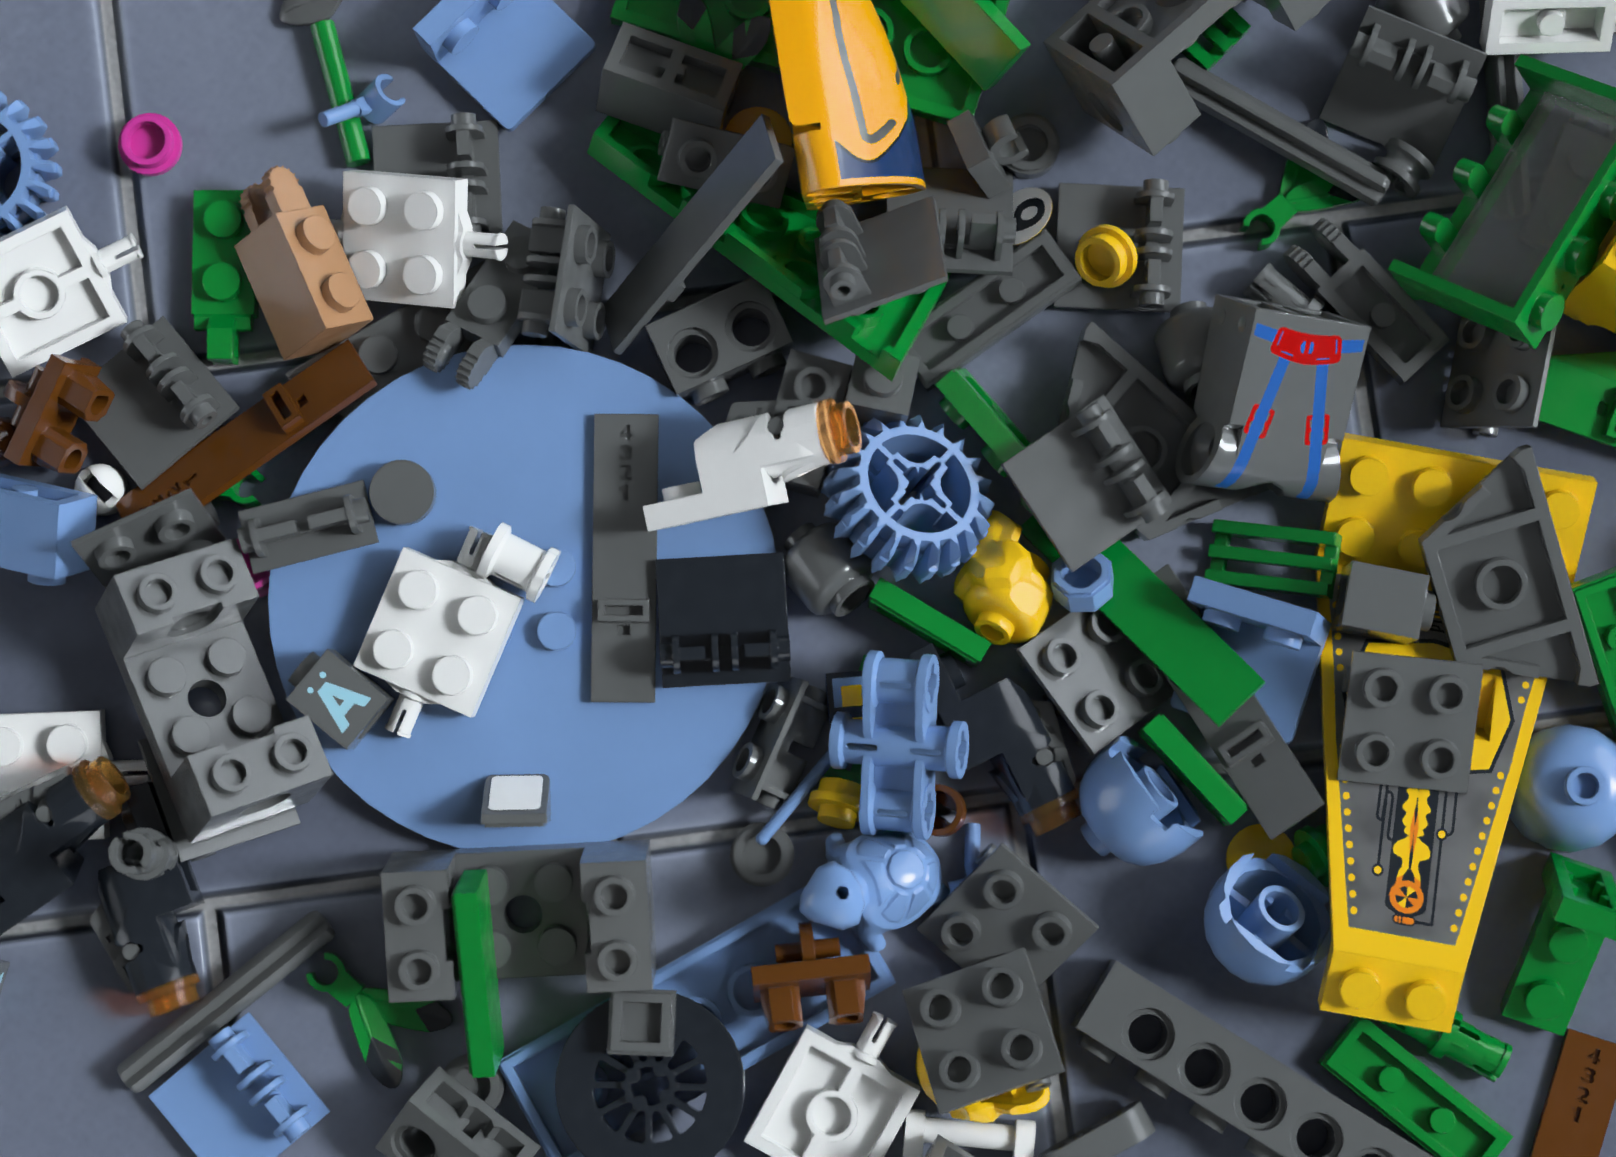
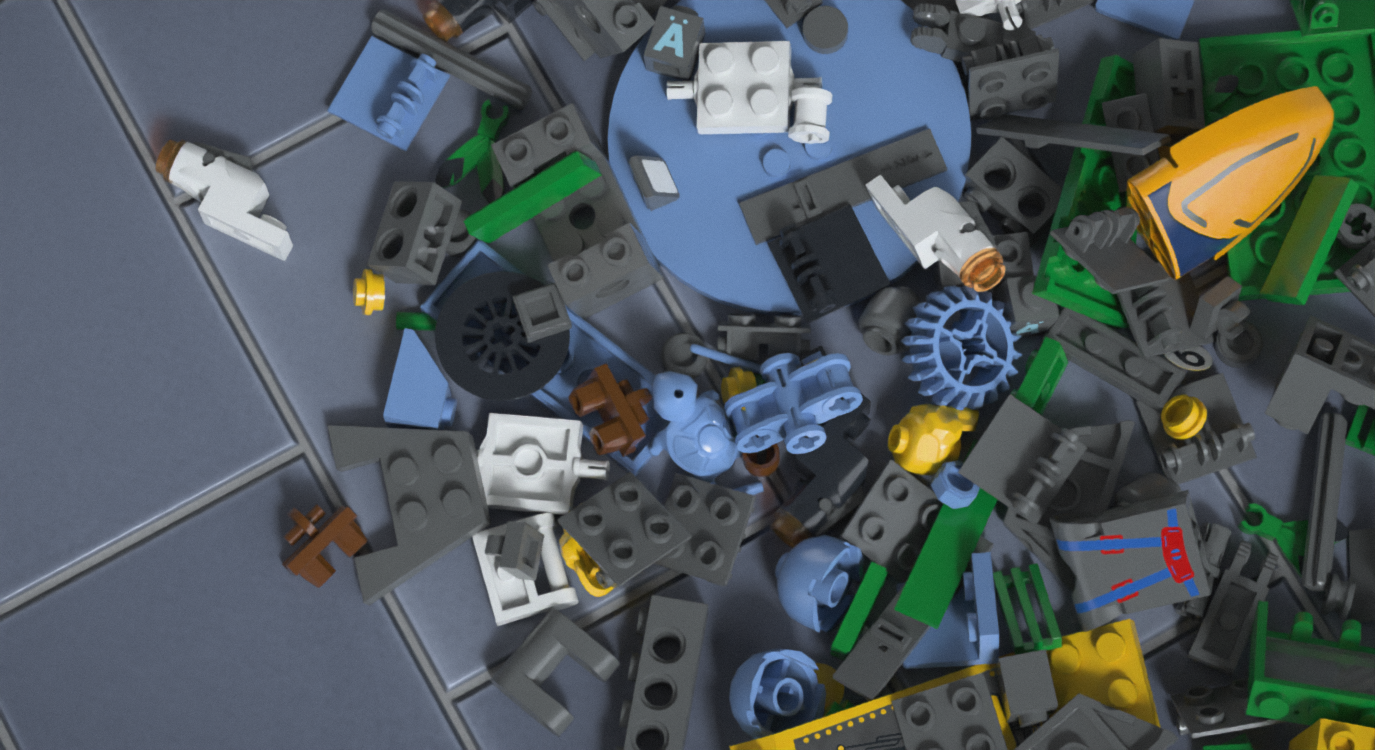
camera: 70 degrees right, 10 degrees down
(927, 623) = (883, 399): green tile -> none

